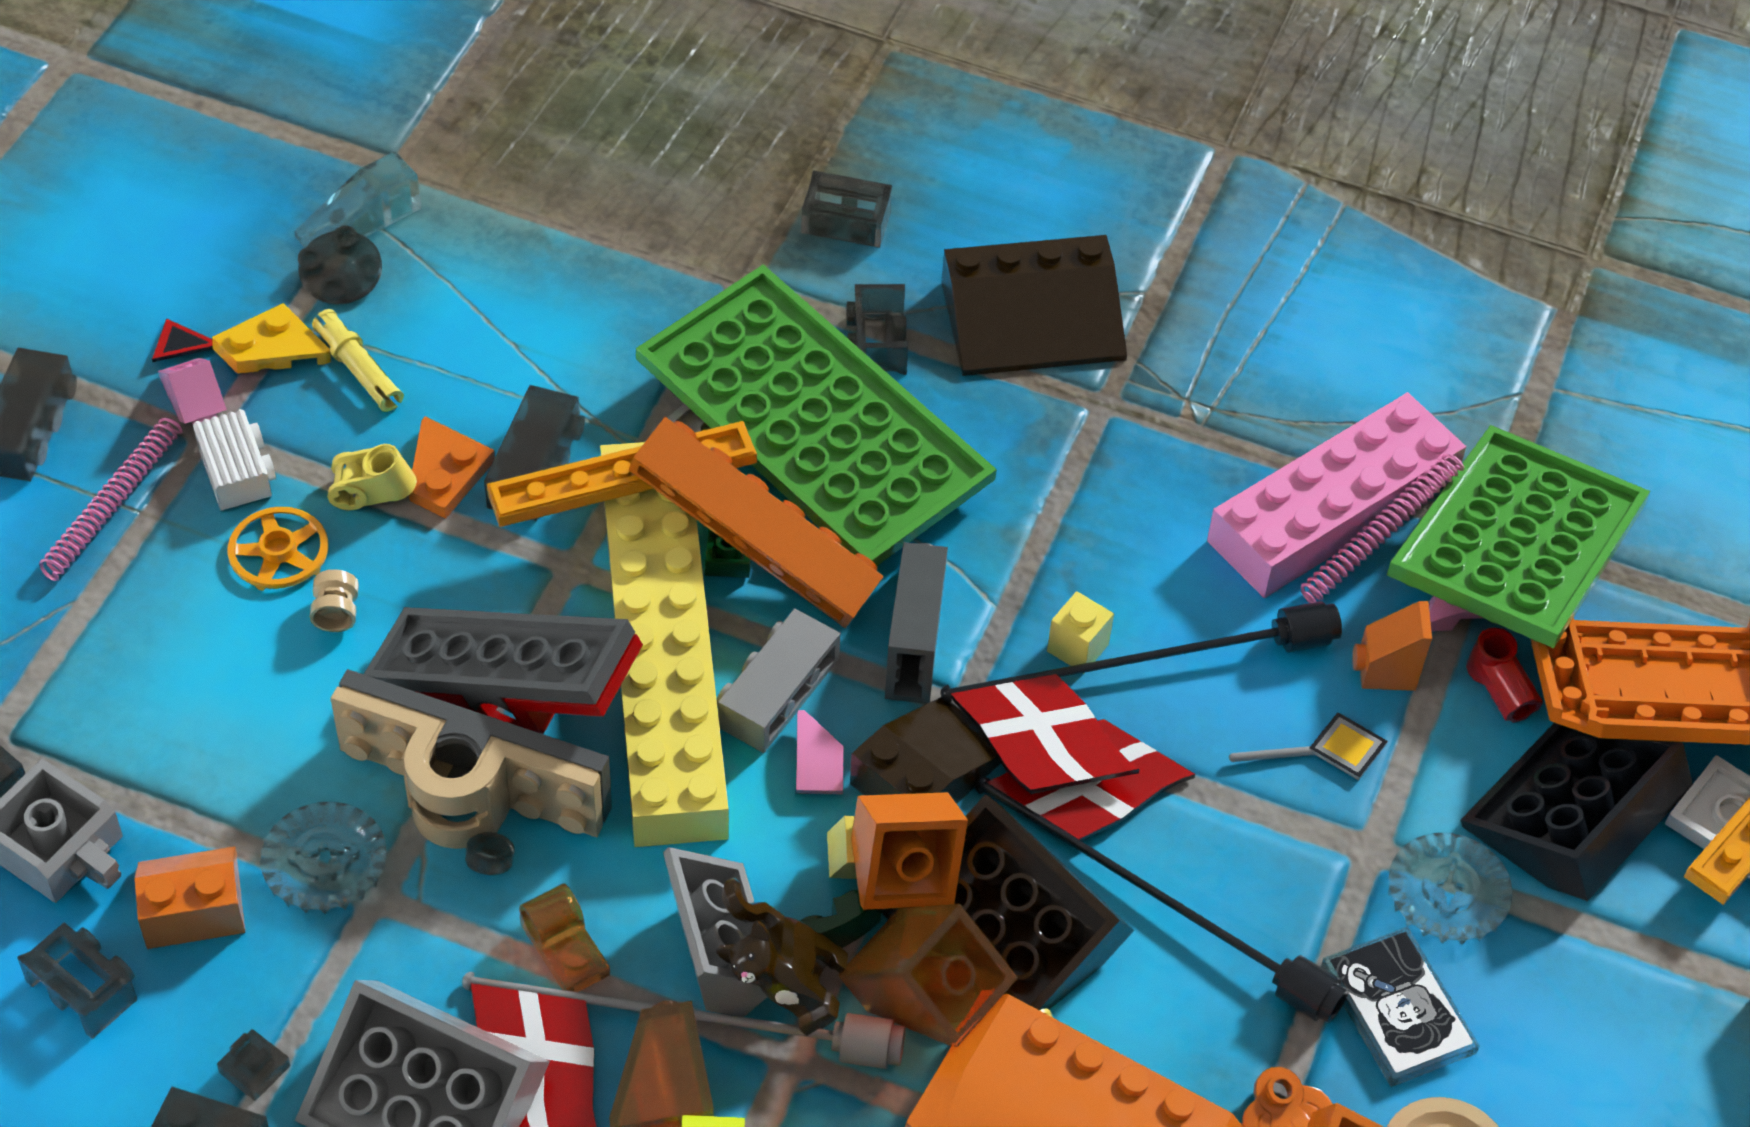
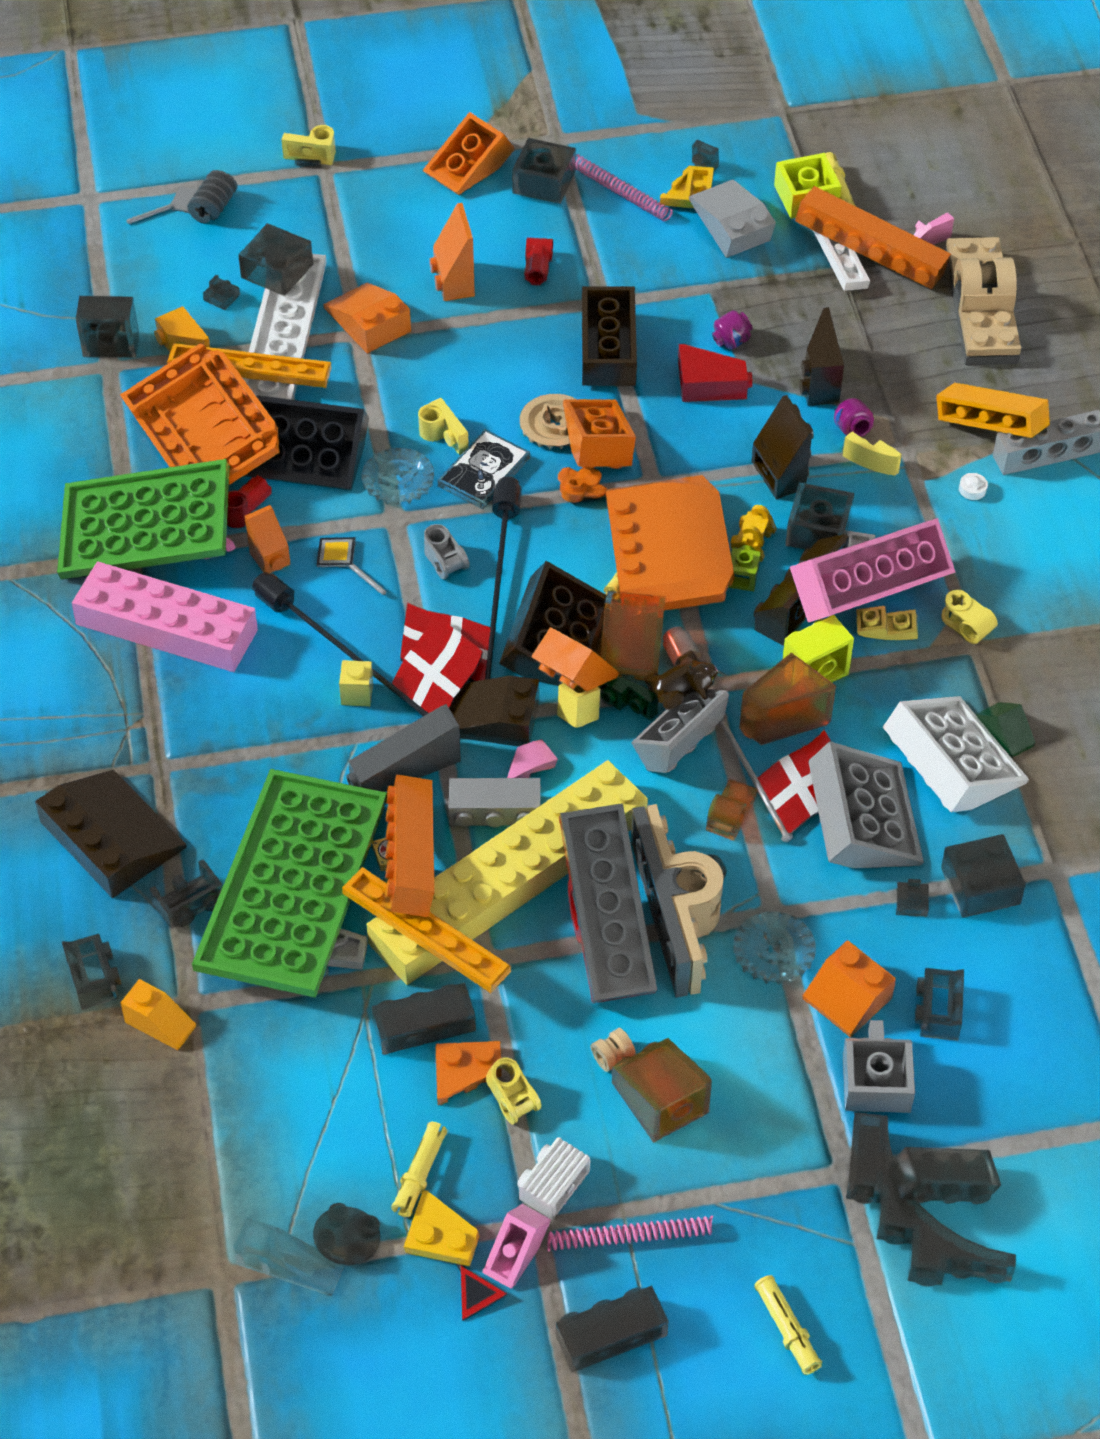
camera: 120 degrees left, 0 degrees up
(238, 606) = (662, 1088): none -> clear orange slope
(278, 546) = (593, 1117): light orange wheel -> none
(741, 235) = (156, 1015): none -> light orange slope
(1251, 854) = (444, 551): none -> light grey piece
(1421, 497) = (171, 579): bright pink piece -> none
(1516, 995) = (439, 422): none -> light yellow plate

